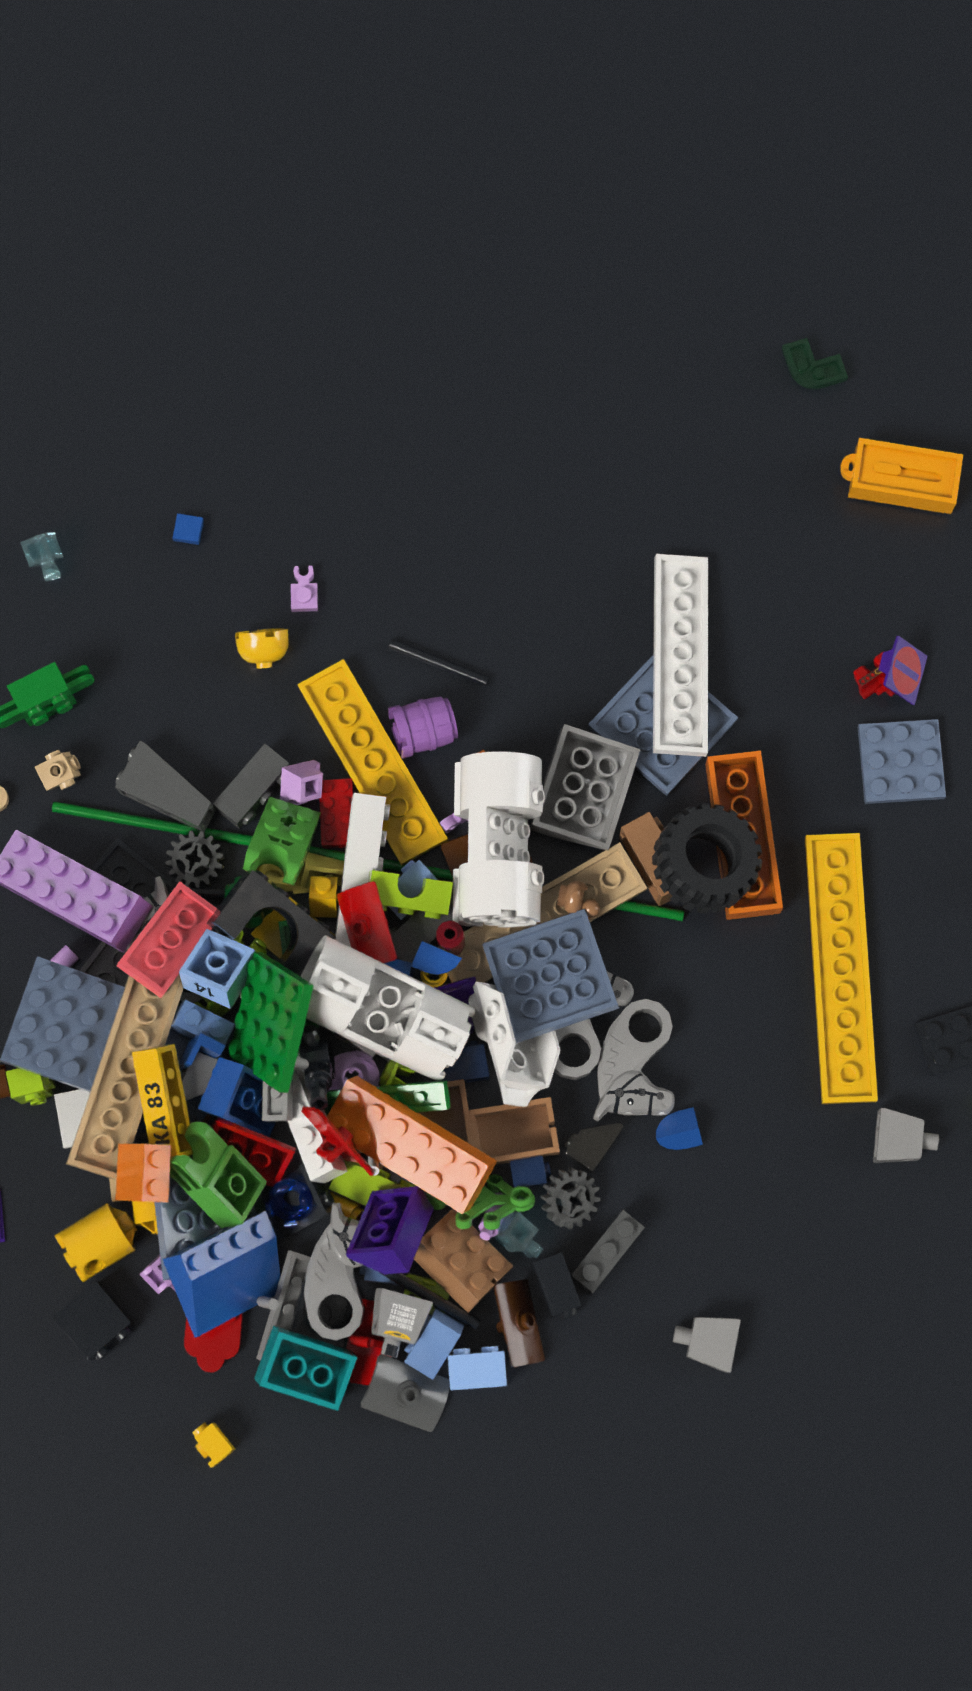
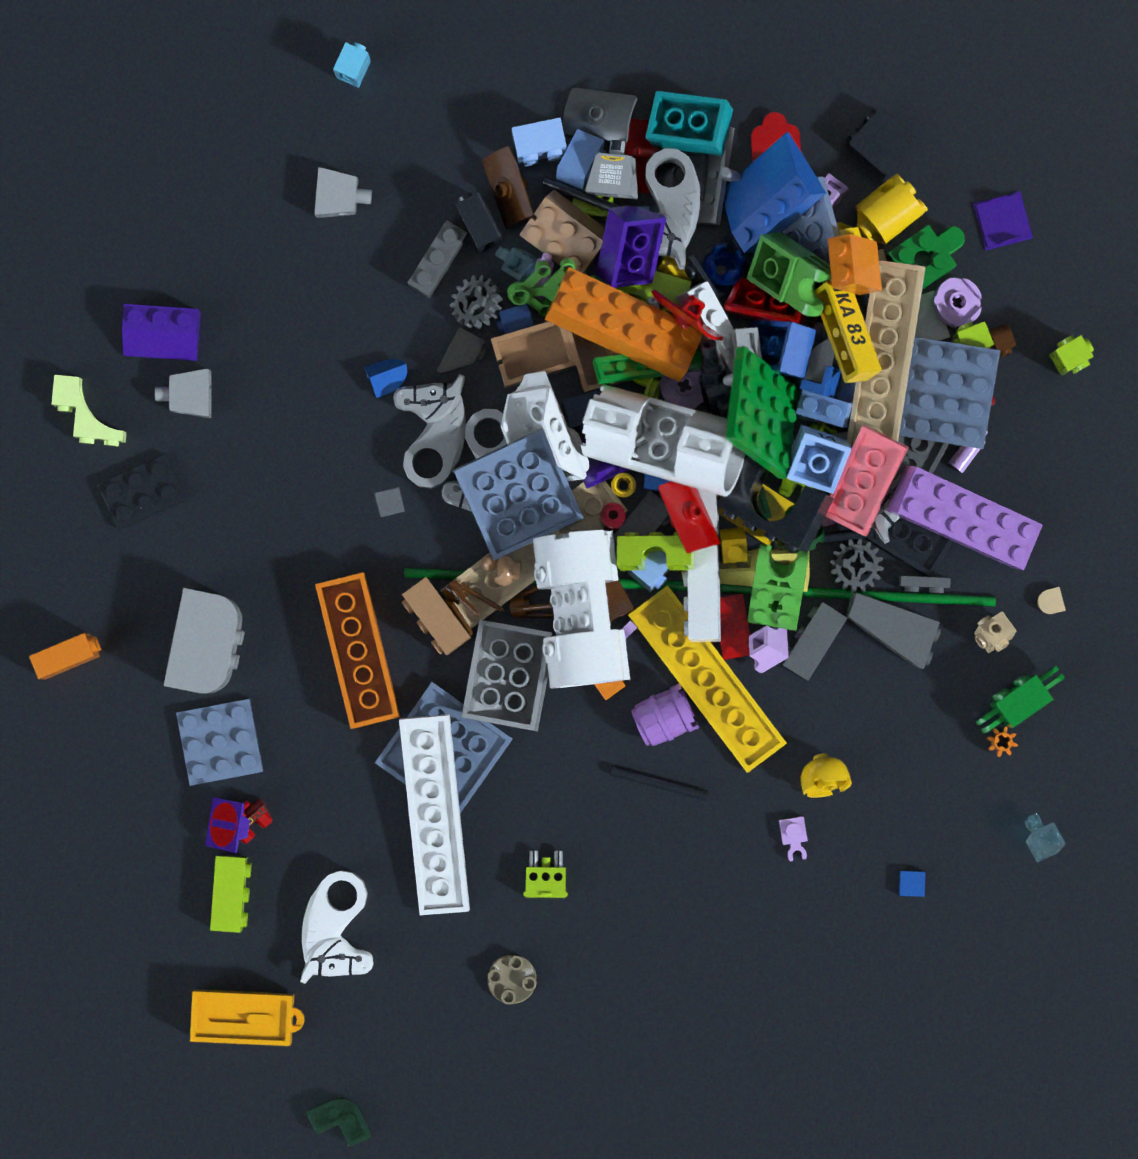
camera: 170 degrees right, 10 degrees up
(54, 1133) = (943, 303): none -> lavender plate
(63, 1189) = (930, 251): none -> green brick
(67, 651) = (1009, 743): none -> orange gear
(136, 834) = (935, 585): none -> dark grey plate
(212, 1443) = (761, 51): yellow brick -> none
(434, 960) = (623, 492): blue brick -> none
(559, 861) = (523, 607): none -> reddish brown plant
(573, 568) = (541, 888): none -> lime piece
(618, 483) = (512, 979): none -> dark tan dish
(630, 878) = (457, 594): none -> reddish brown plant
(678, 1488) = (352, 64): none -> medium azure brick
(690, 992) = (389, 502): none -> clear tile
(729, 835) = (358, 623): black tyre -> none
(812, 540) = (322, 944): none -> white animal
(841, 969) = (256, 541): yellow plate -> none
(905, 601) = (230, 893): none -> lime brick
(909, 862) = (204, 643): none -> light grey brick
(925, 1211) = (161, 332): none -> dark purple slope

